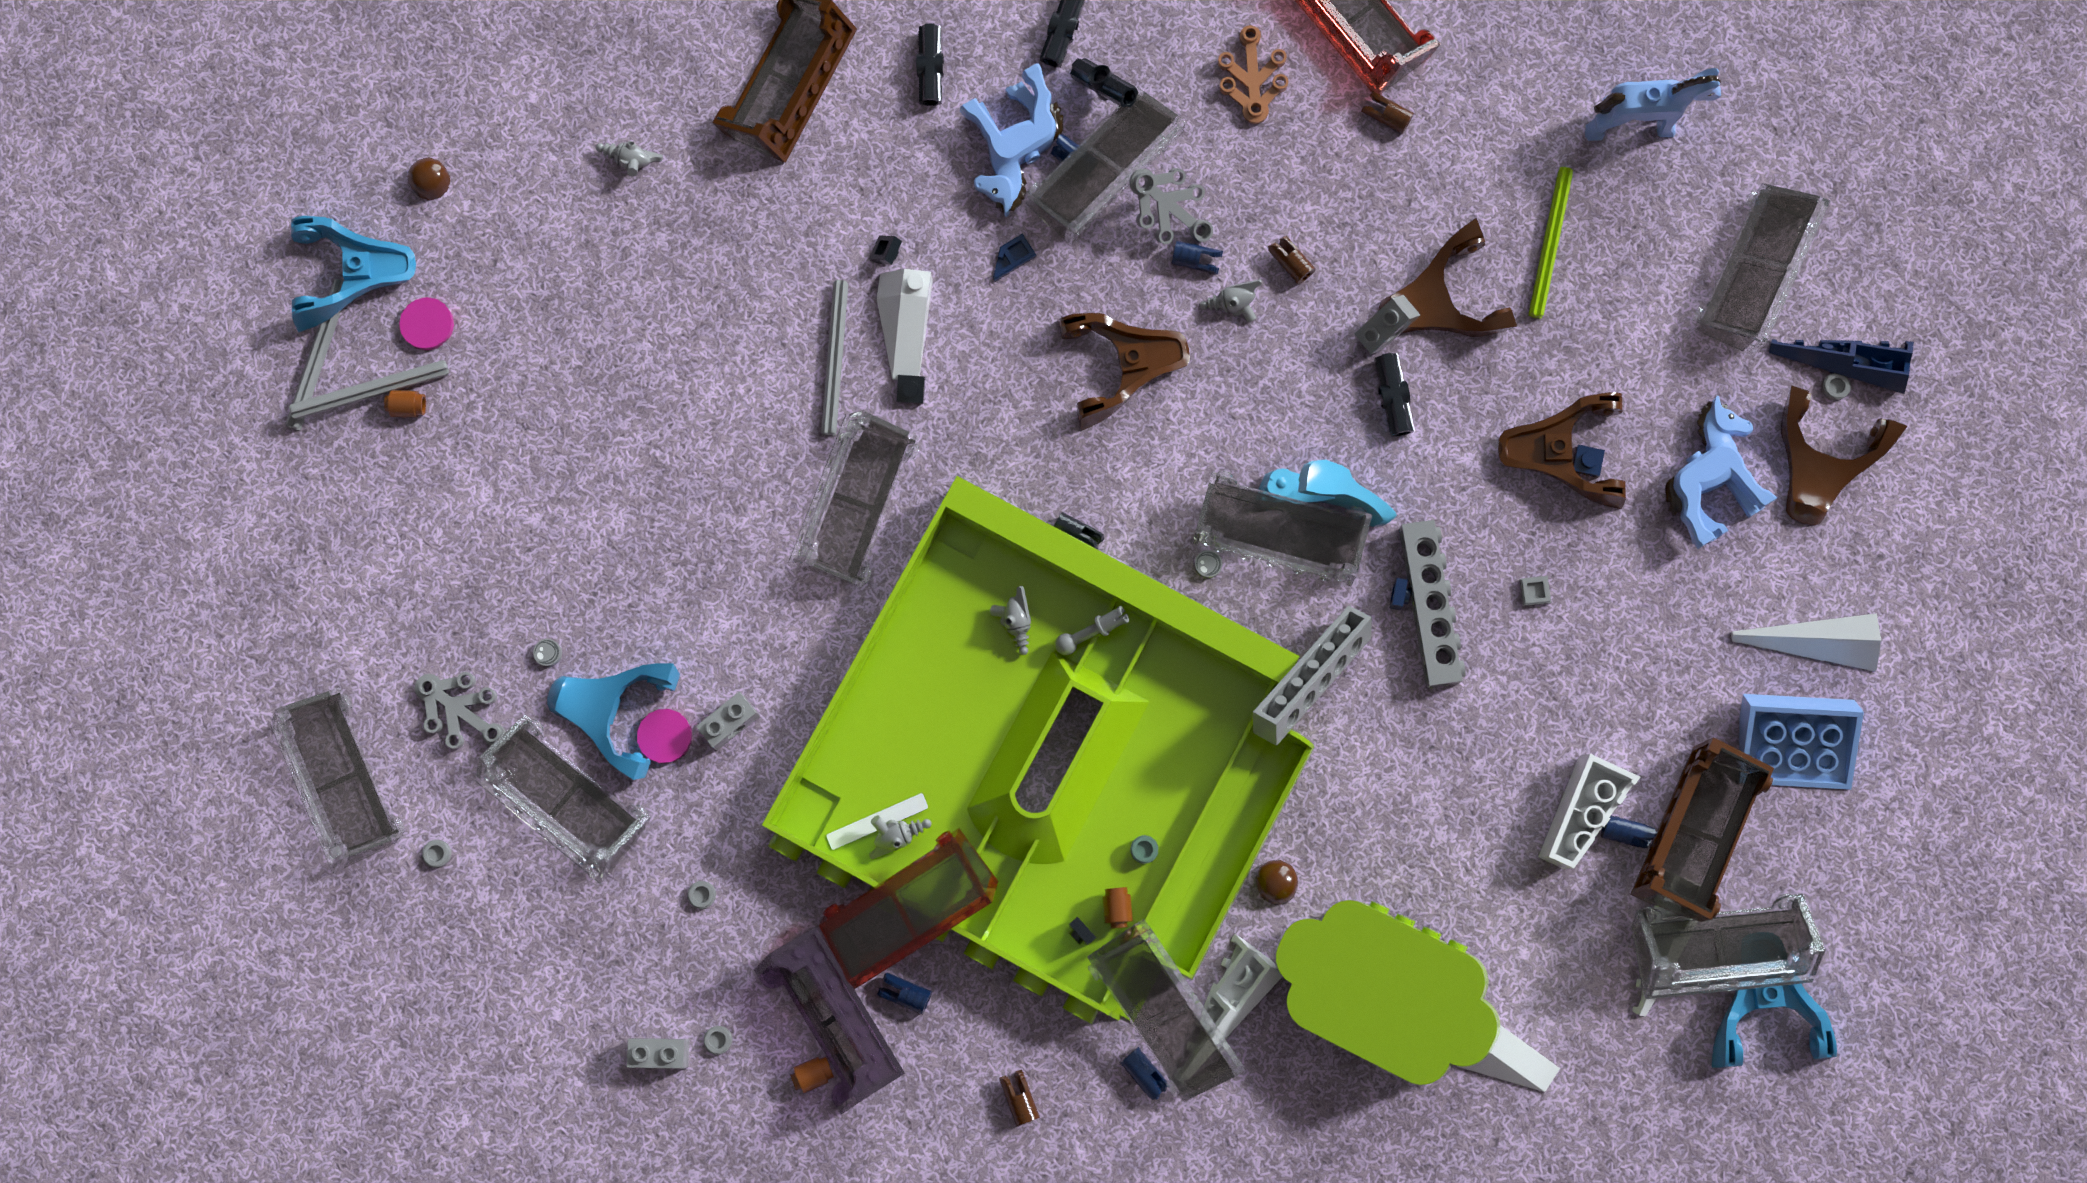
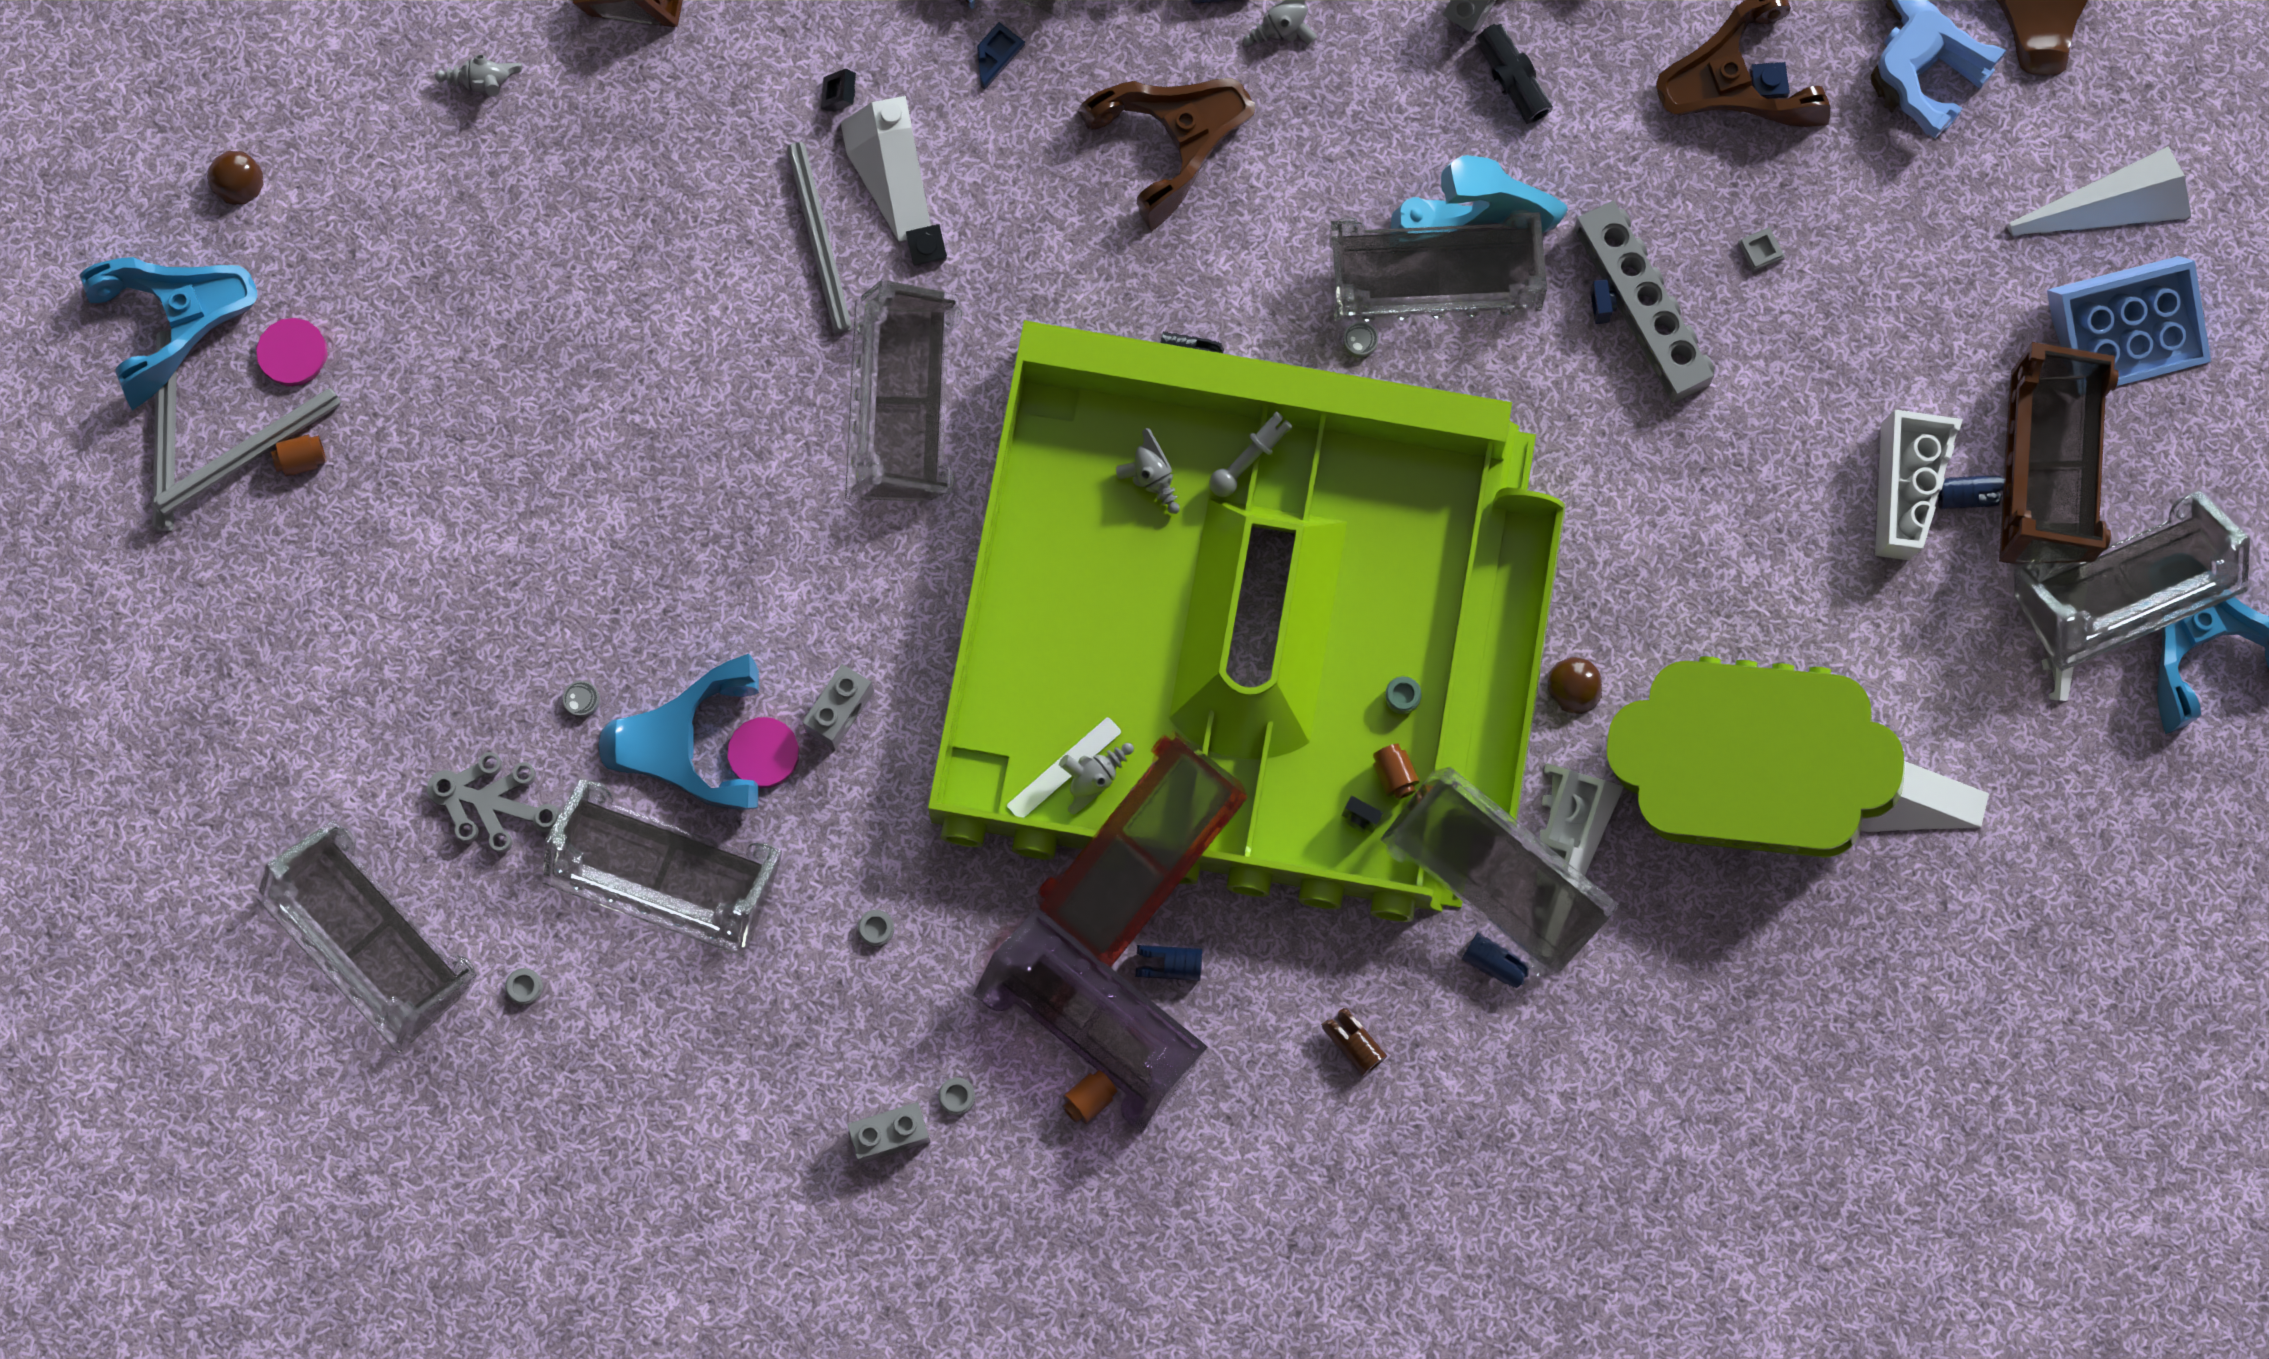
camera: 25 degrees left, 5 degrees down
(1312, 675) = (1534, 420): light grey brick -> none

